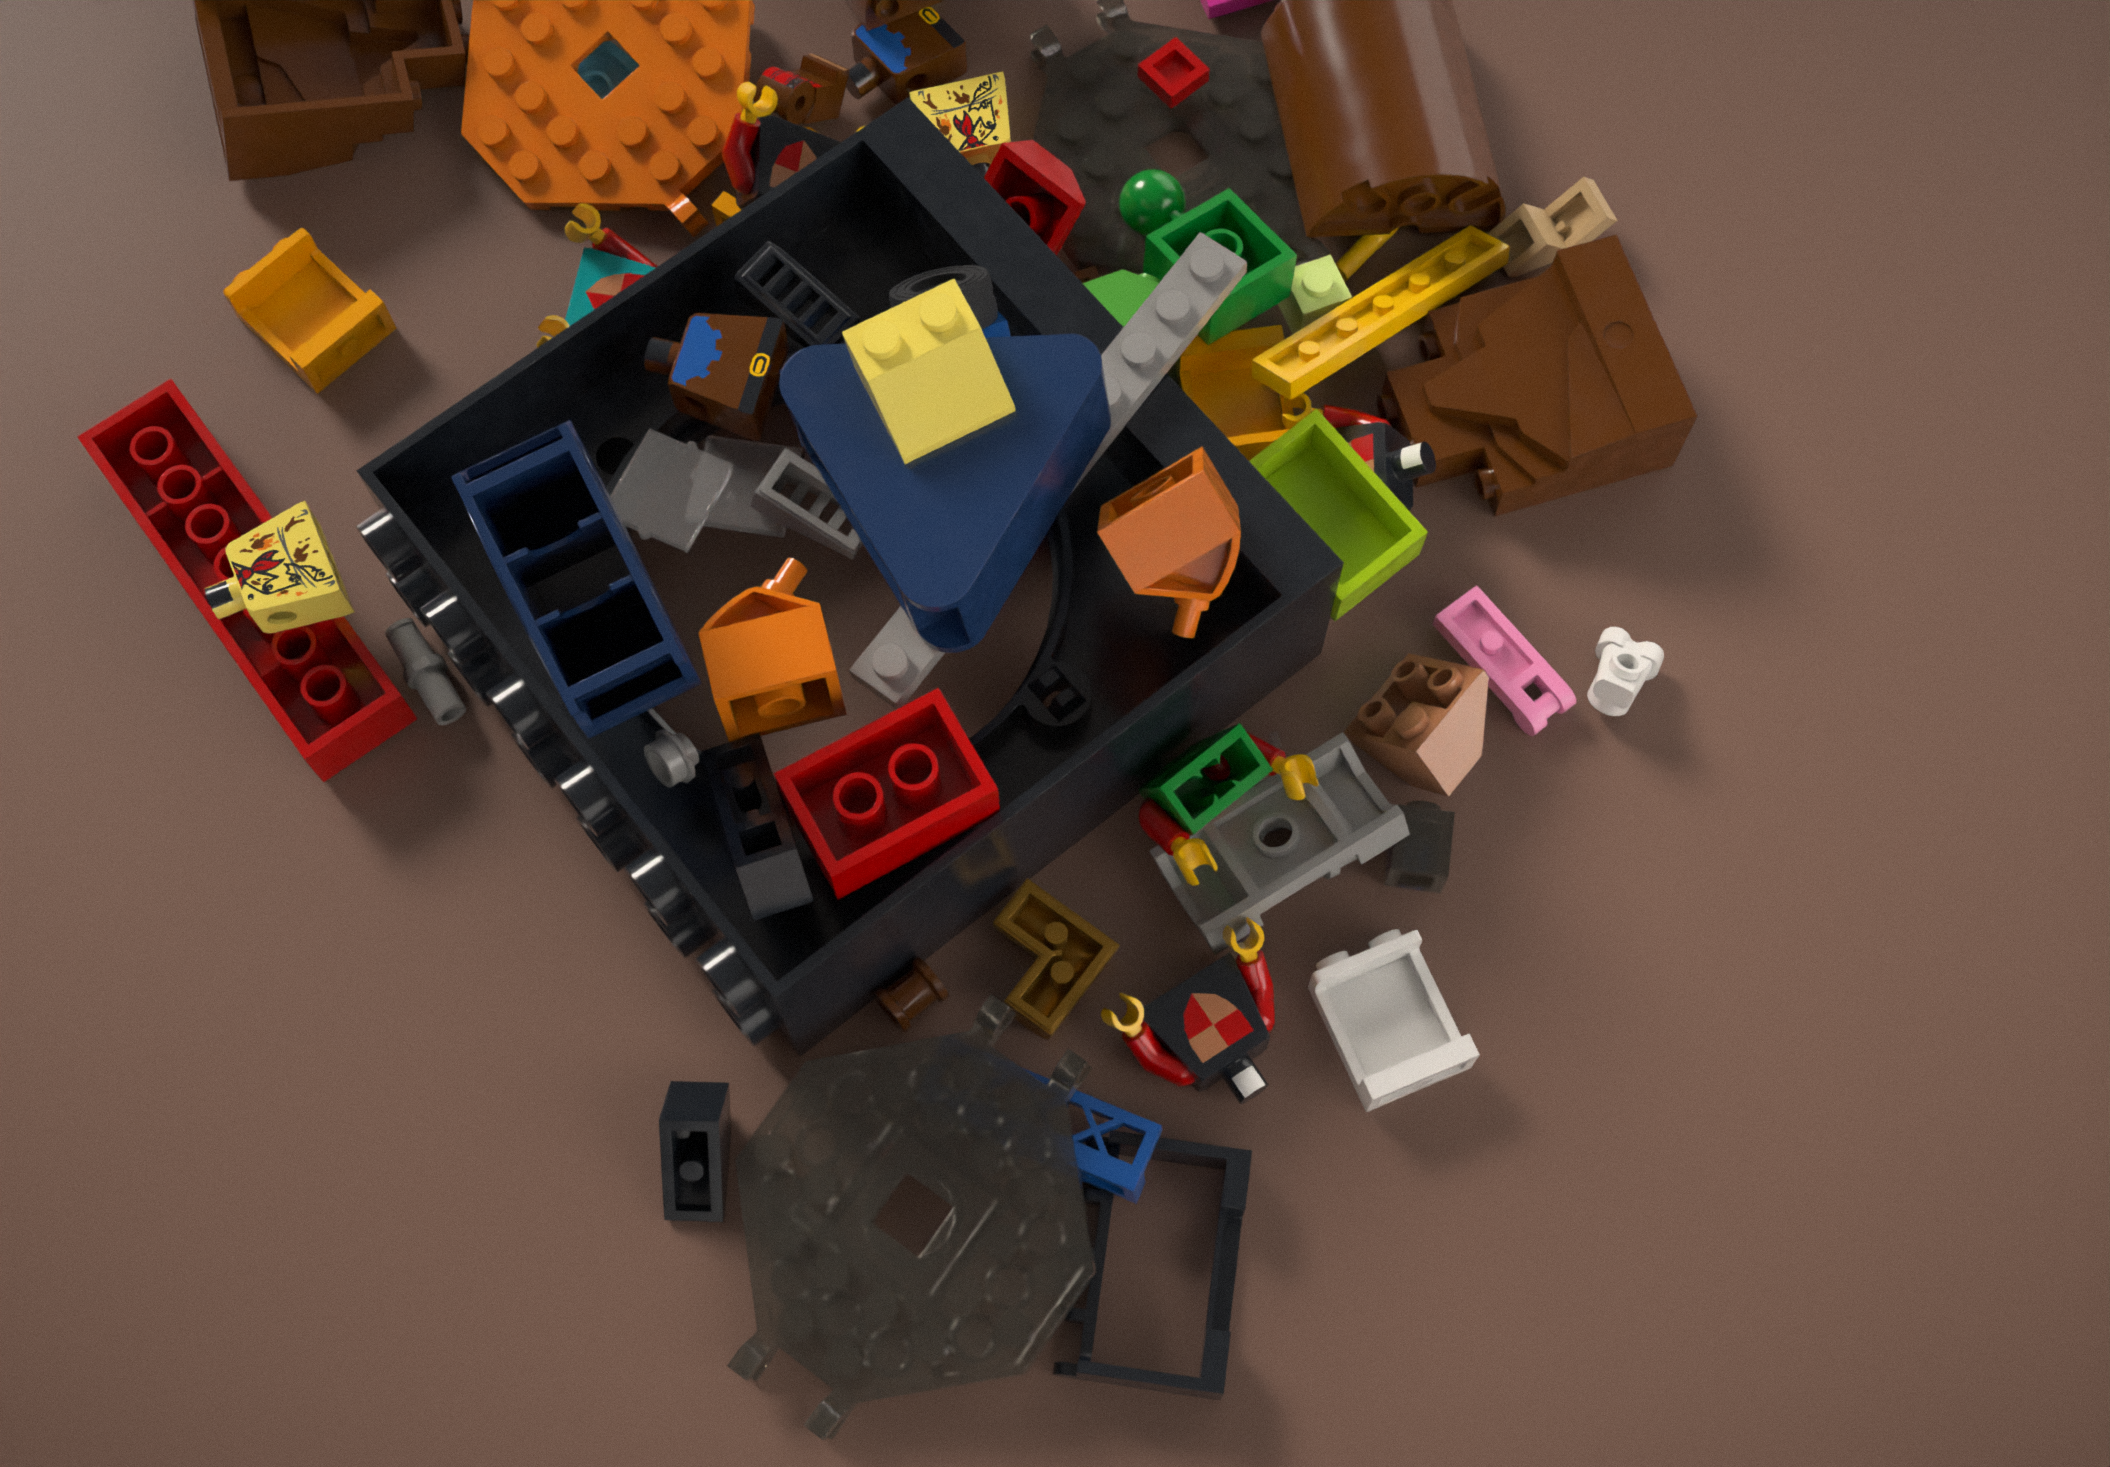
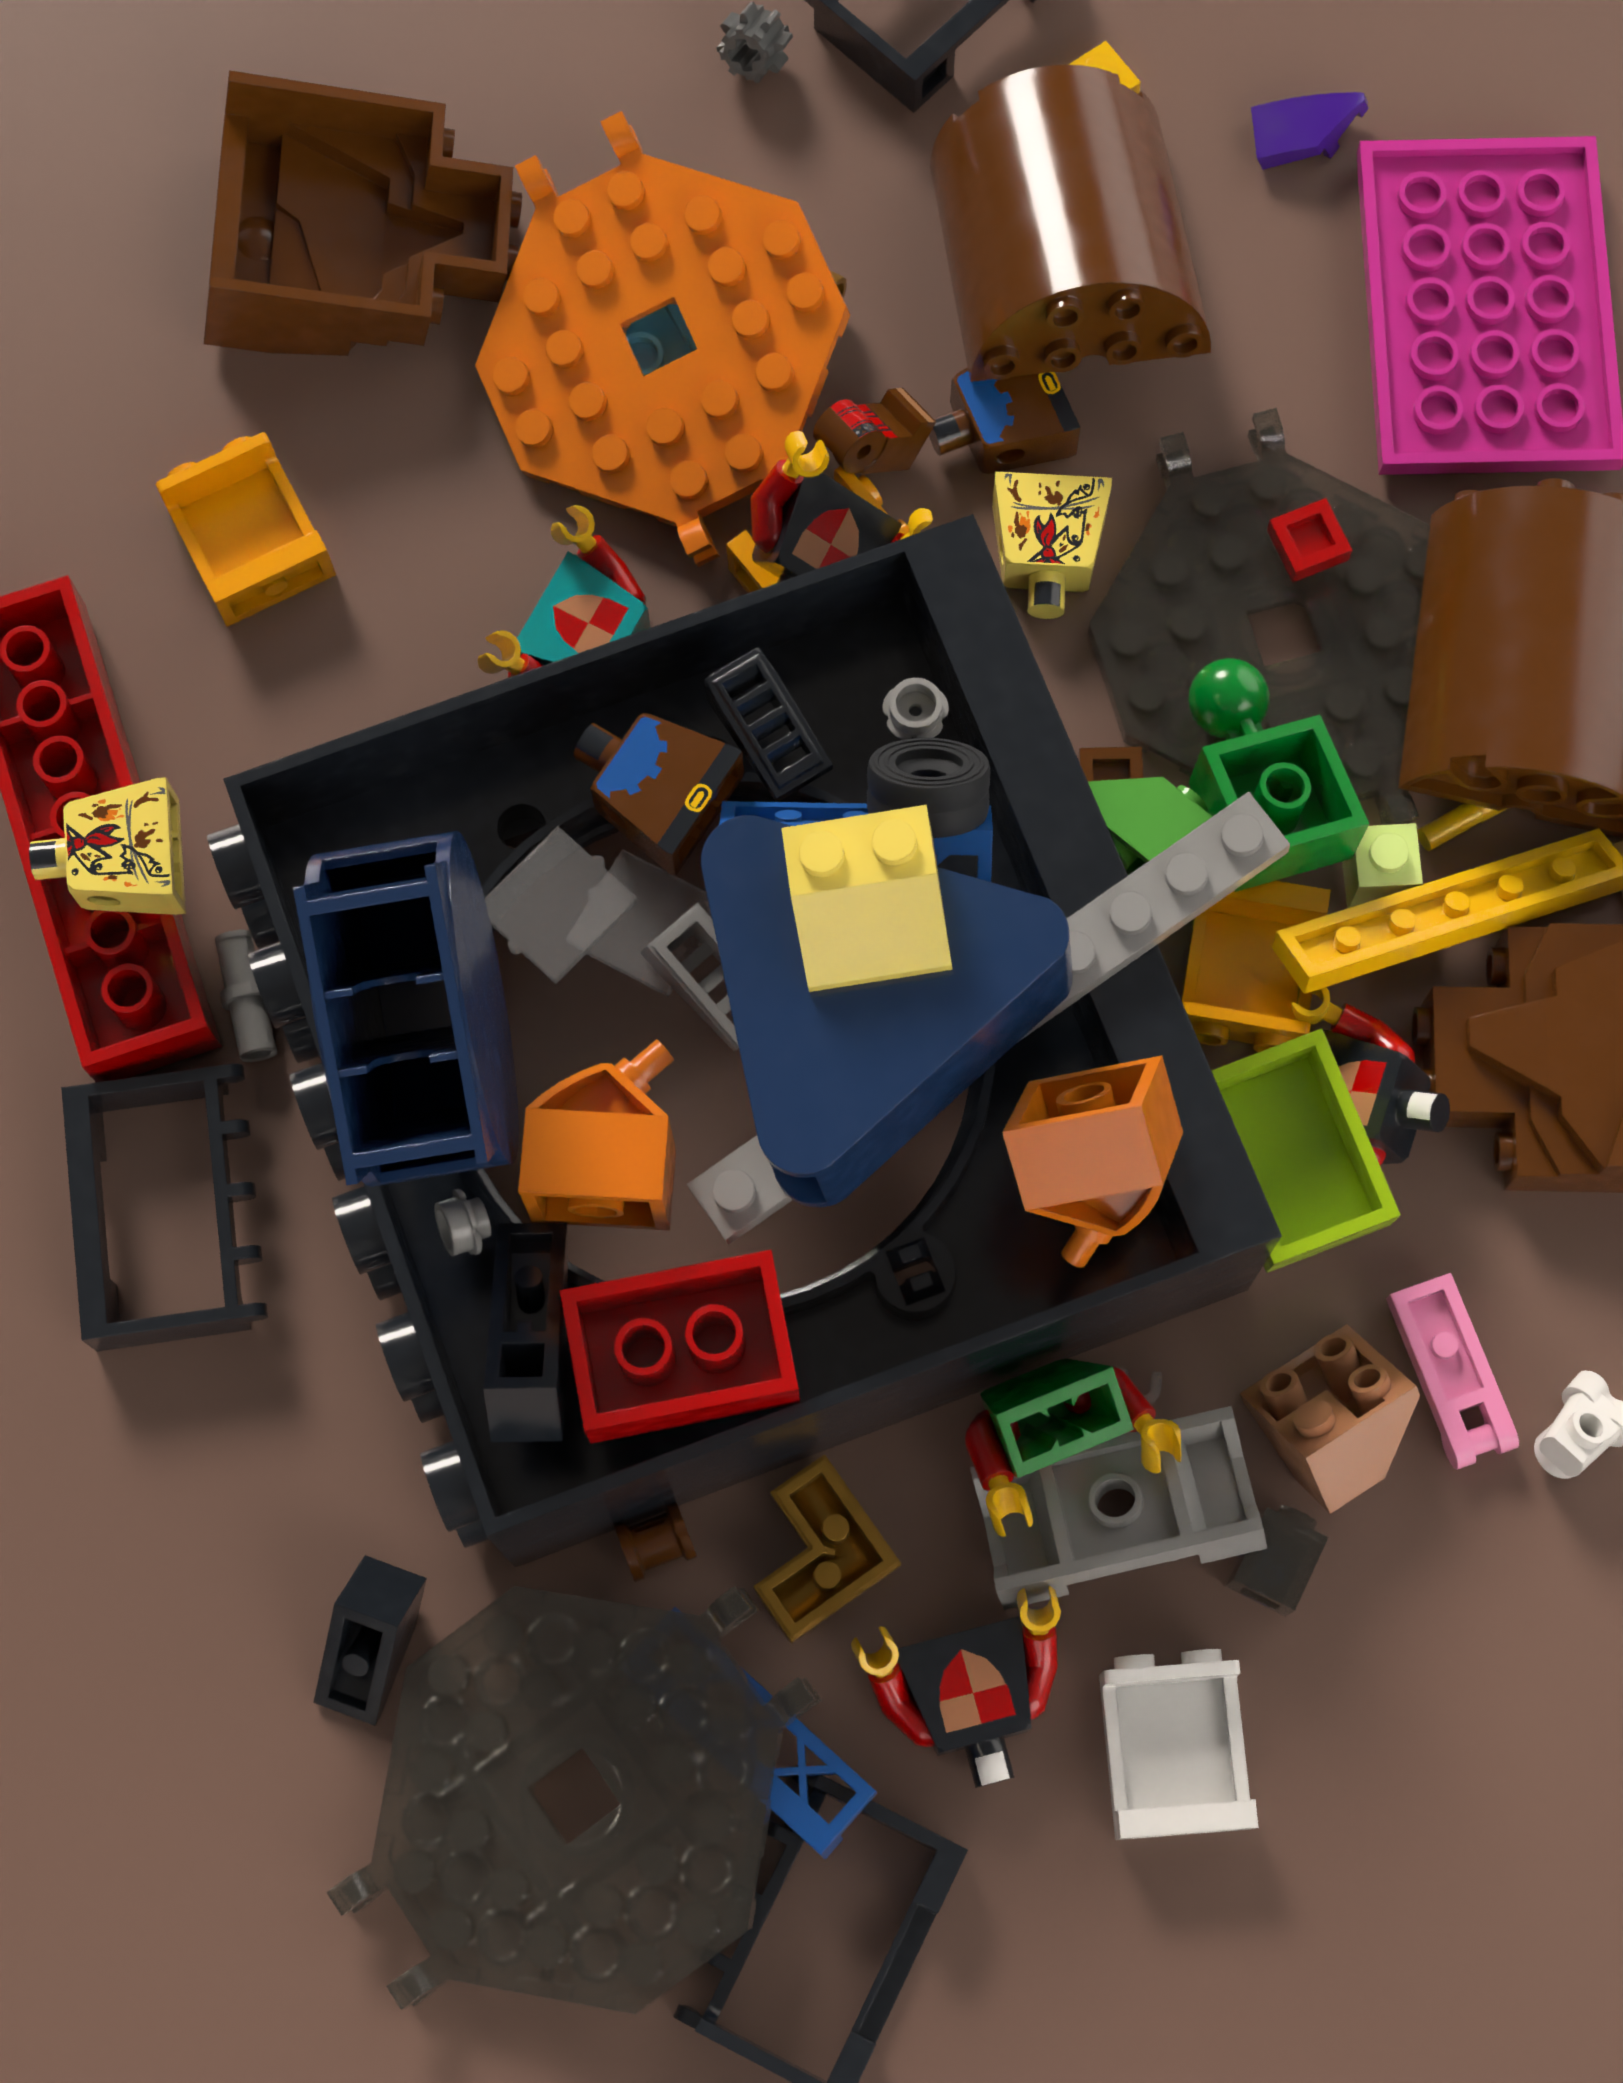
camera: 20 degrees right, 5 degrees up
(315, 799) = (86, 1149): none -> black hinge
(911, 243) = (917, 693): none -> light grey plate
(1037, 189) = (1090, 653): red slope -> none

